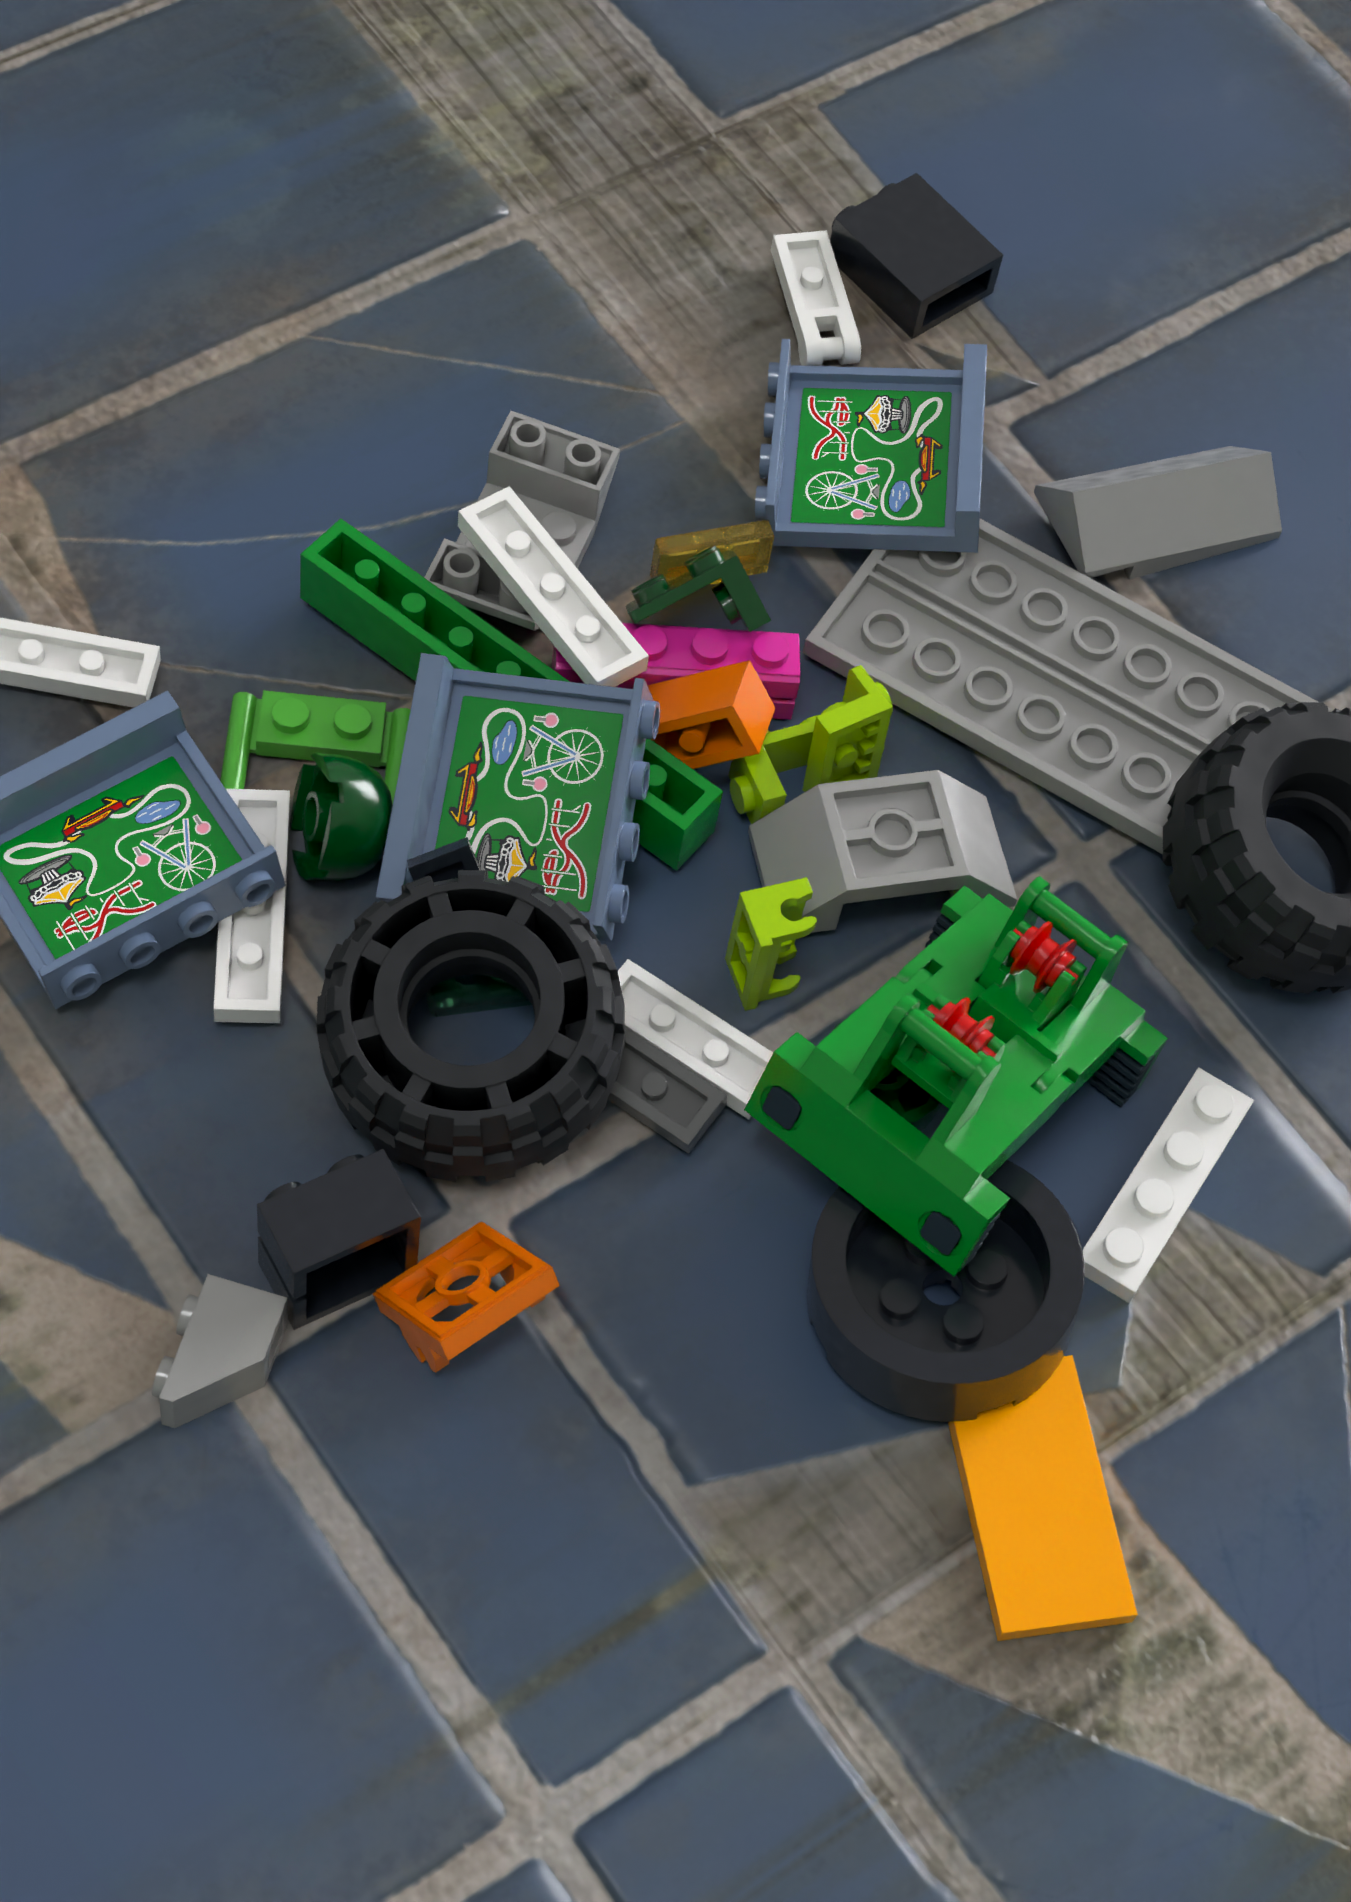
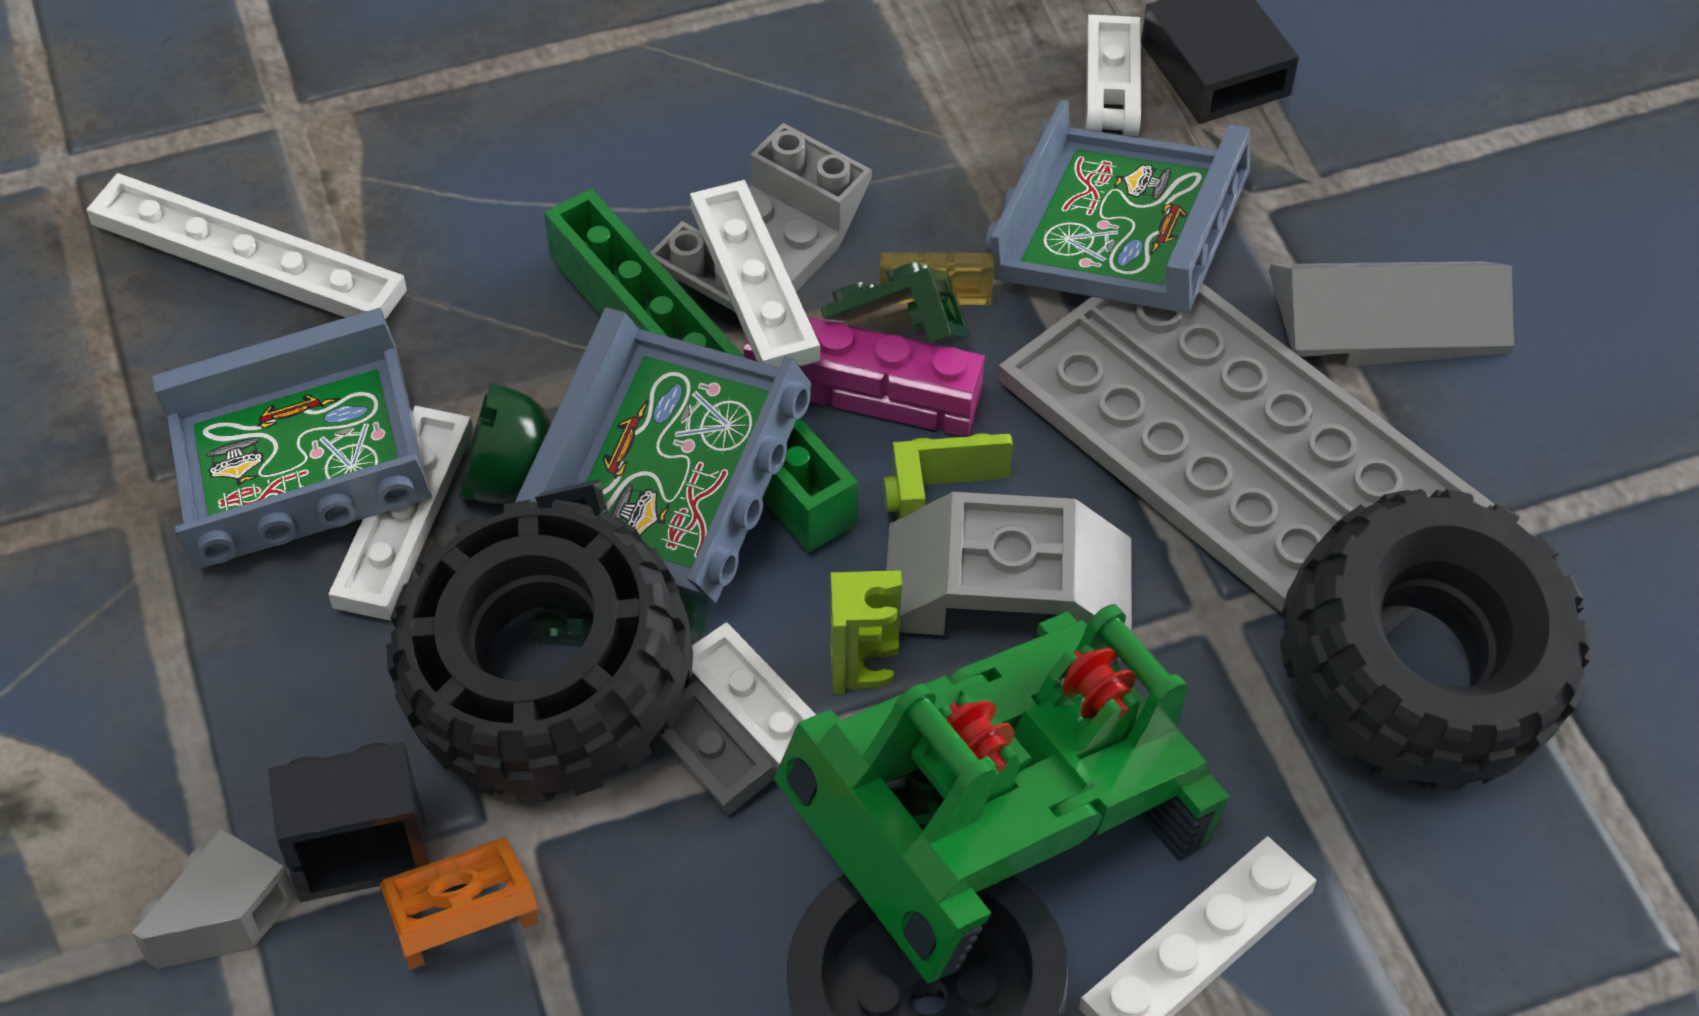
camera: 25 degrees right, 5 degrees down
(309, 724) = (502, 360): bright green plate -> none
(713, 714) = (871, 413): orange brick -> none
(850, 733) = (1003, 452): lime bracket -> none

